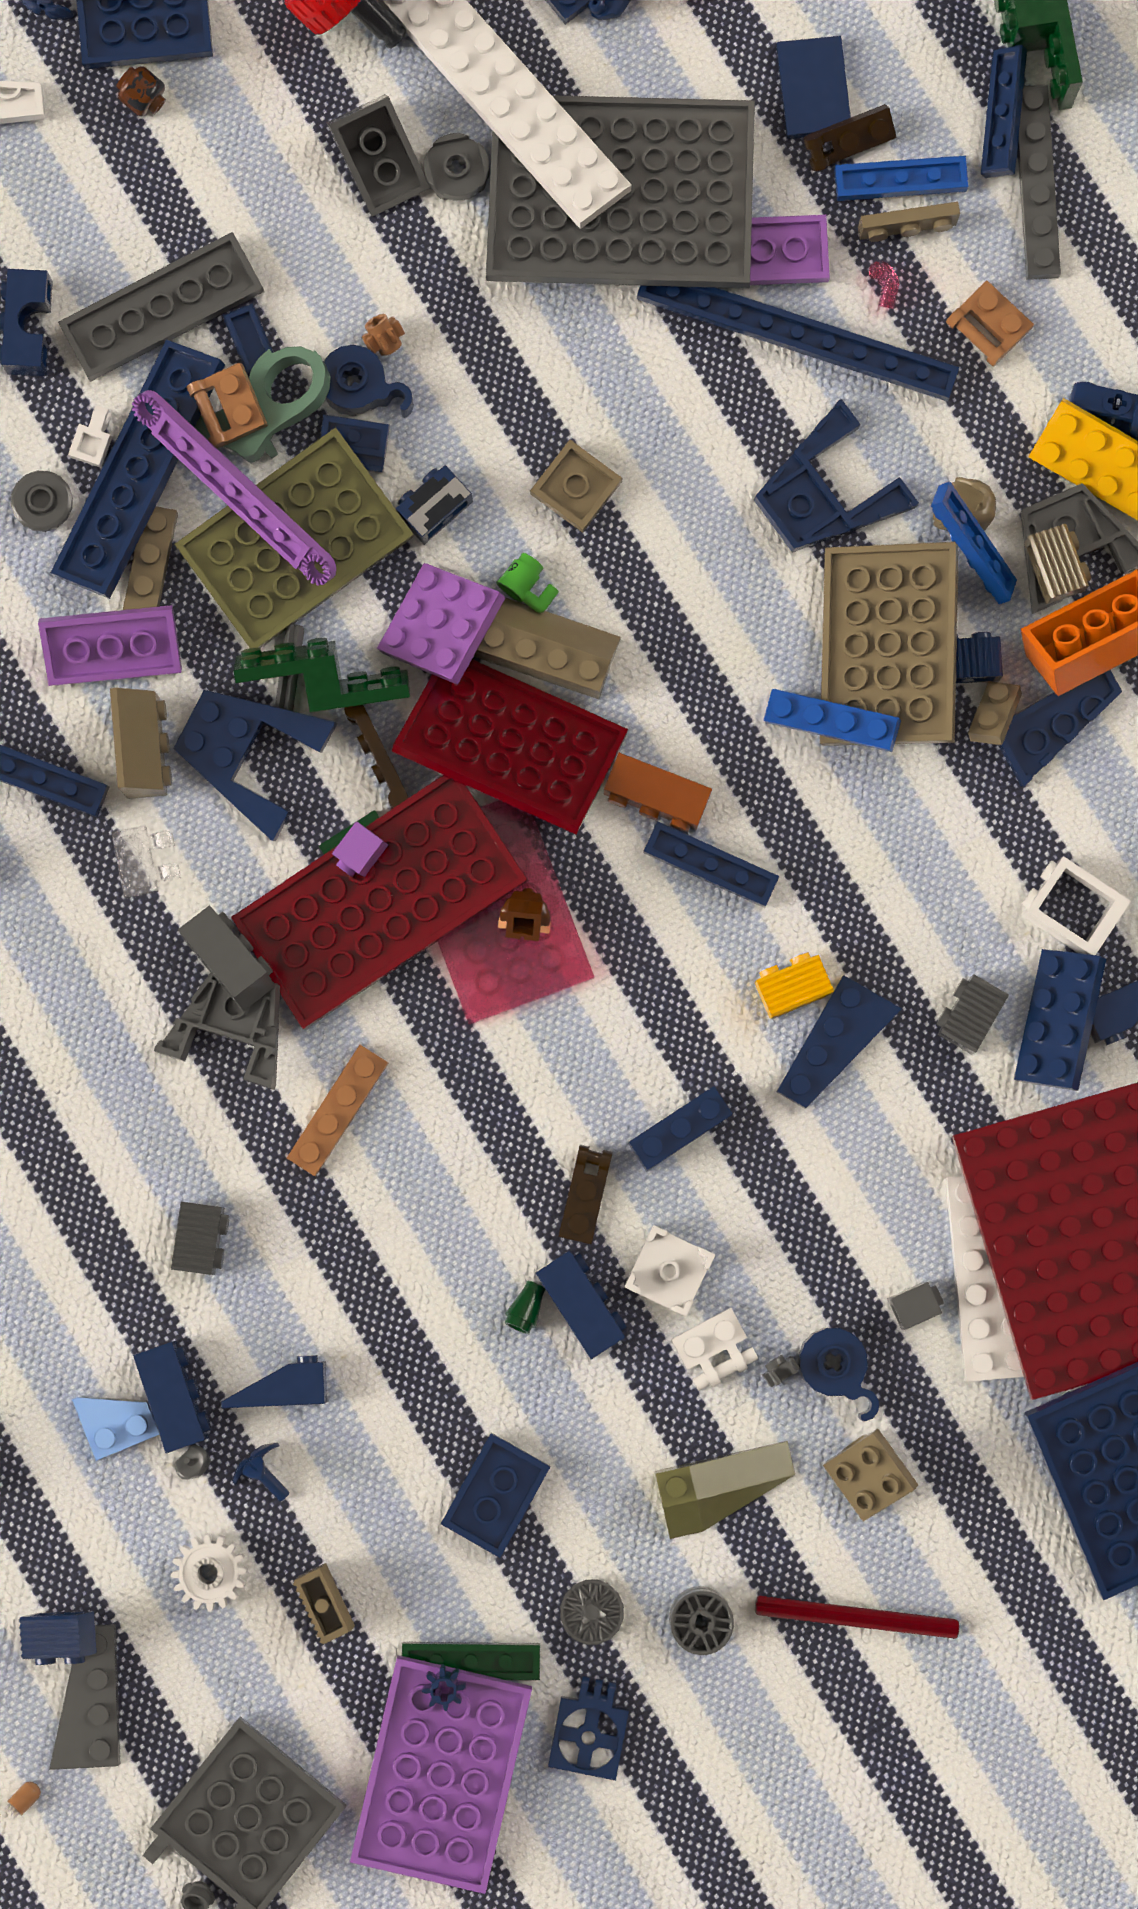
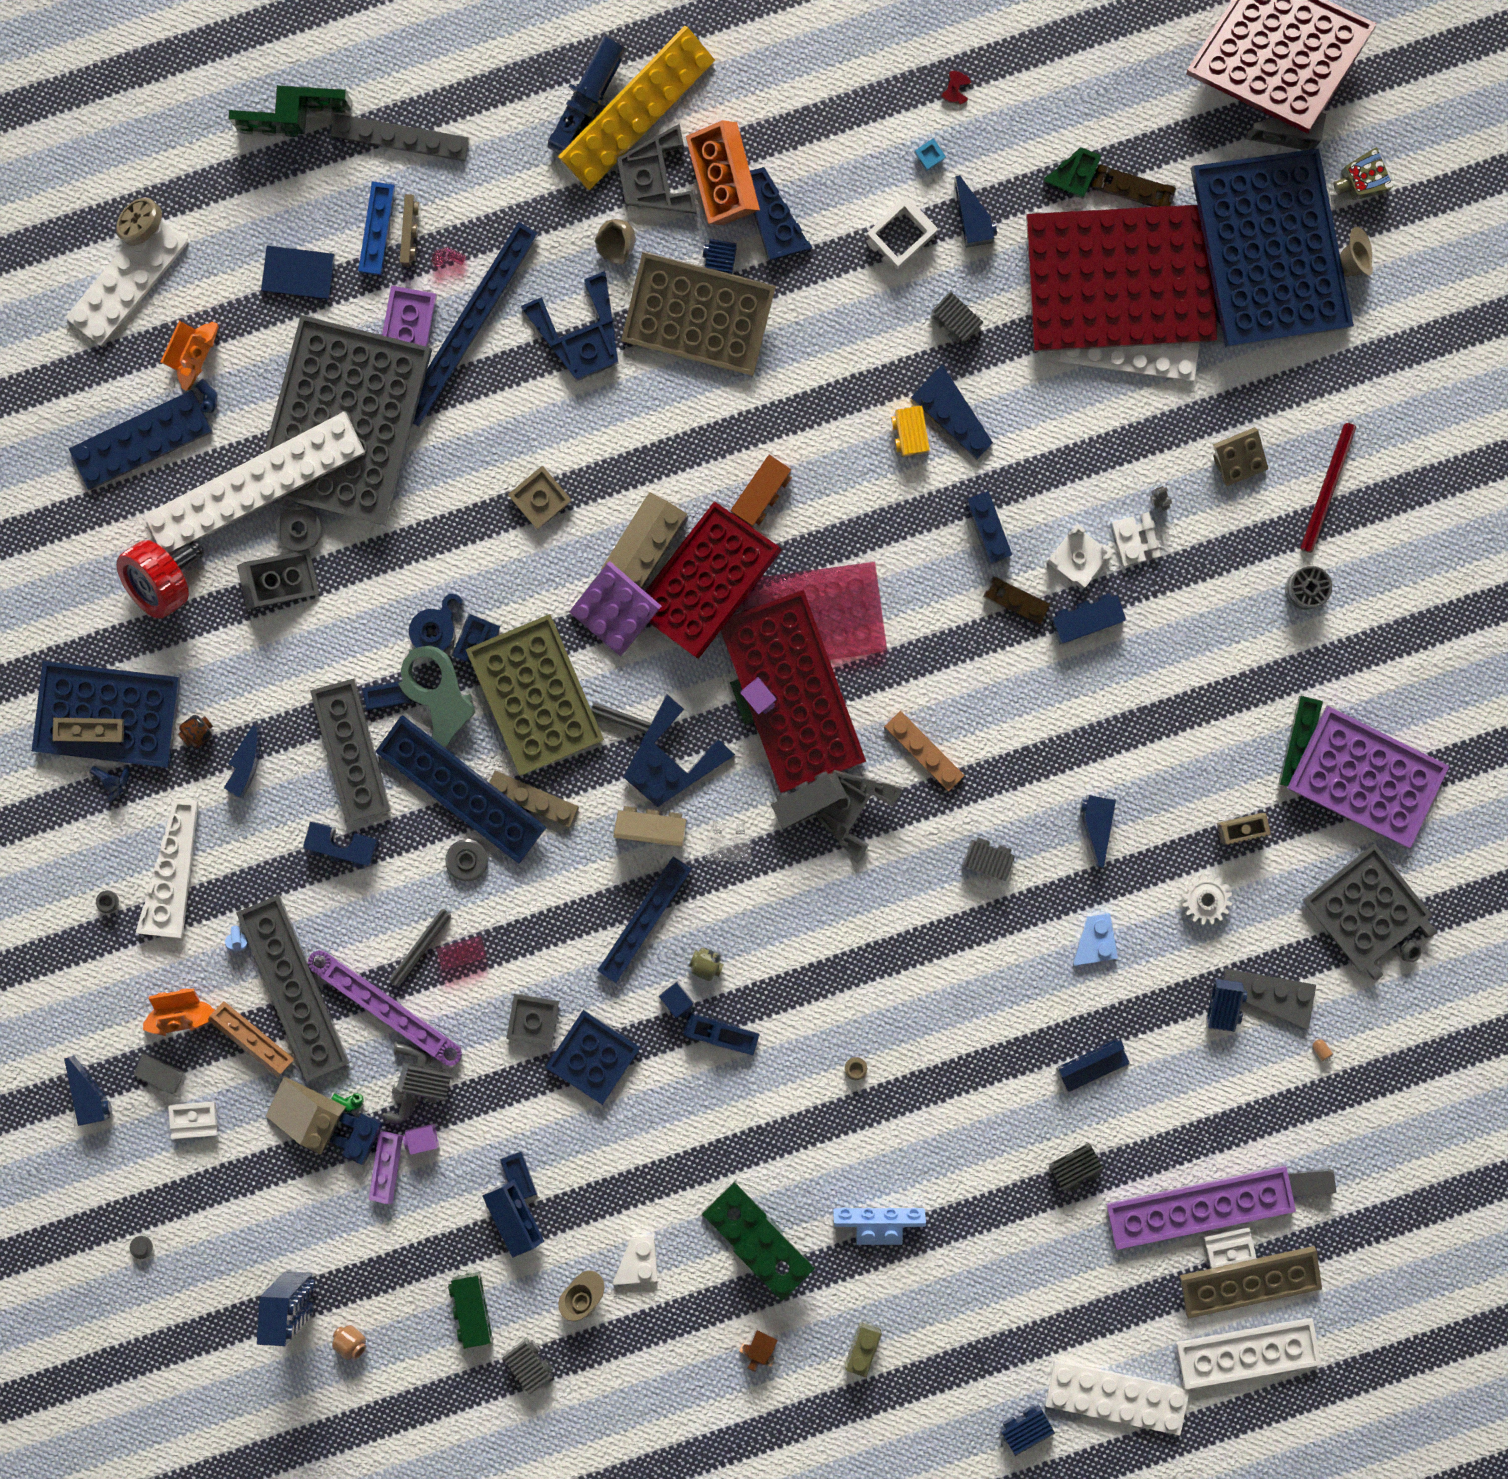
camera: 75 degrees left, 5 degrees up
(91, 442) = (434, 818): white plate -> none
(110, 645) = (579, 833): medium lavender plate -> none
(112, 167) = (245, 762): none -> dark blue slope
(172, 1396) = (1087, 898): dark blue brick -> none
(192, 1463) = (1133, 895): dark grey piece -> none
(234, 487) = (492, 726): medium lavender plate -> none
(236, 400) = (432, 711): medium nougat plate -> none
(255, 1469) = (1147, 854): dark blue plant -> none
(322, 675) = (626, 696): dark green bracket -> none
(371, 743) = (684, 674): dark brown plate -> none
(383, 334) = (406, 604): medium nougat gear -> none
(434, 503) = (531, 596): brick -> none
(451, 1681) = (1308, 761): dark blue gear -> none
(495, 1495) = (1198, 703): dark blue plate -> none
(521, 578) = (595, 549): bright green piece -> none
(525, 915) = (826, 597): reddish brown piece -> none
(525, 1309) = (1083, 656): dark green cone -> none
(592, 1612) = (1286, 657): dark grey wheel -> none
(594, 1703) = (1344, 669): dark blue piece -> none
(711, 864) = (817, 467): dark blue plate -> none
(713, 1488) = (1225, 561): olive wedge -> none
(832, 720) = (740, 363): blue plate -> none
(849, 1376) = (1173, 455): dark blue piece -> none
(850, 137) = (340, 256): dark brown plate -> none
(916, 1305) = (1137, 401): dark grey brick -> none
(973, 542) = (644, 240): blue plate -> none
(995, 713) = (760, 254): dark tan plate -> none
(996, 316) = (487, 187): medium nougat plate -> none
(1004, 111) = (346, 147): dark blue tile -> none
(1057, 563) = (670, 188): dark tan brick -> none
(1060, 1019) = (973, 261): dark blue plate -> none

